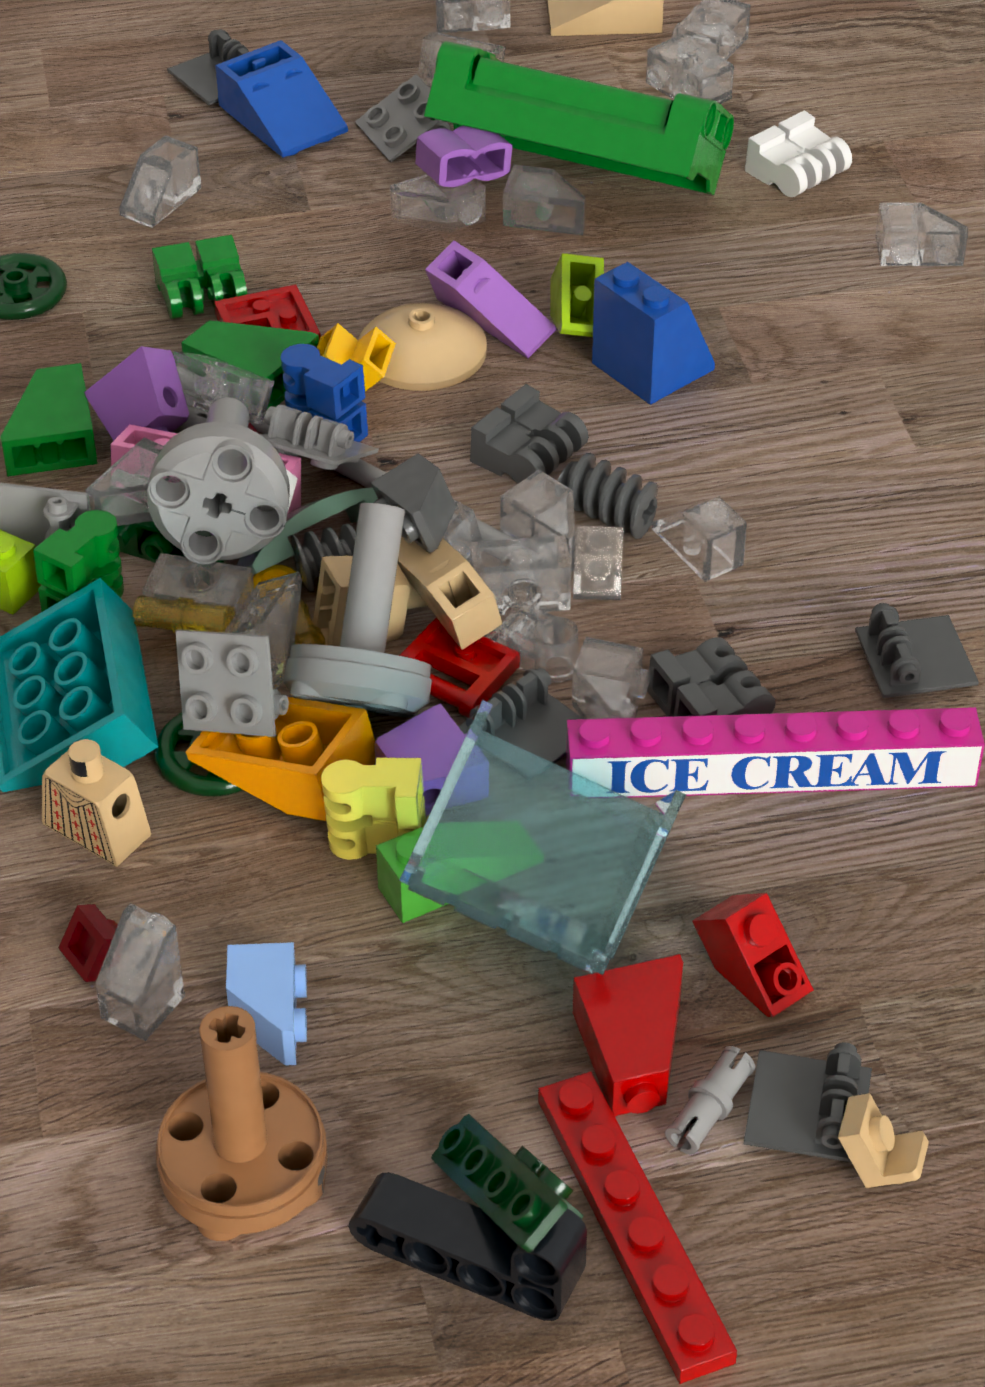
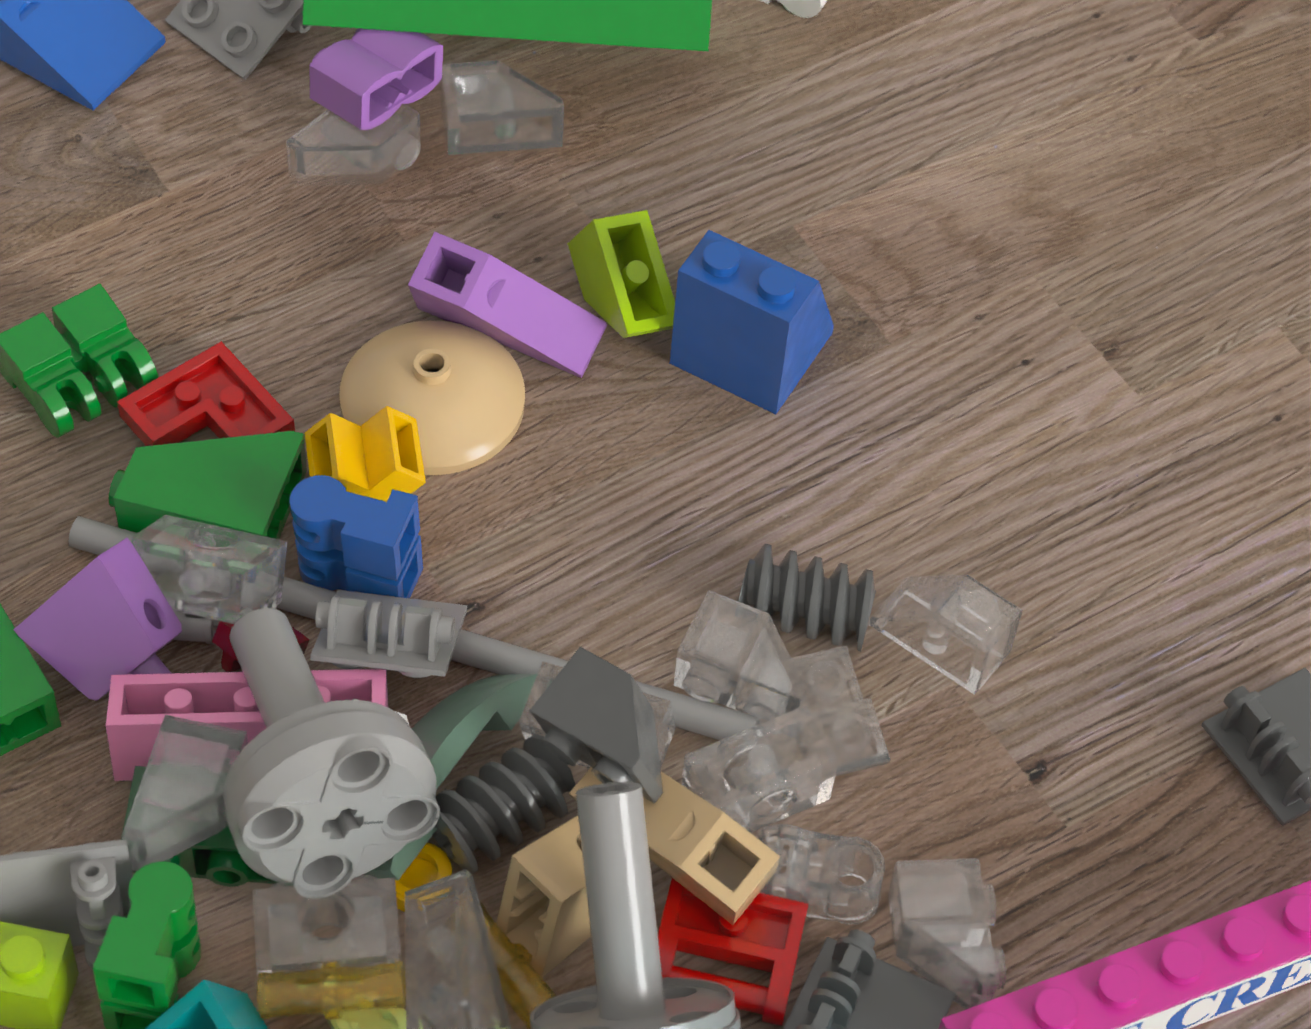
camera: 25 degrees left, 10 degrees up
(525, 436) = (655, 528): dark grey legs -> none
(706, 683) = (1043, 884): dark grey legs -> none
(918, 236) = (1004, 54): clear slope -> none

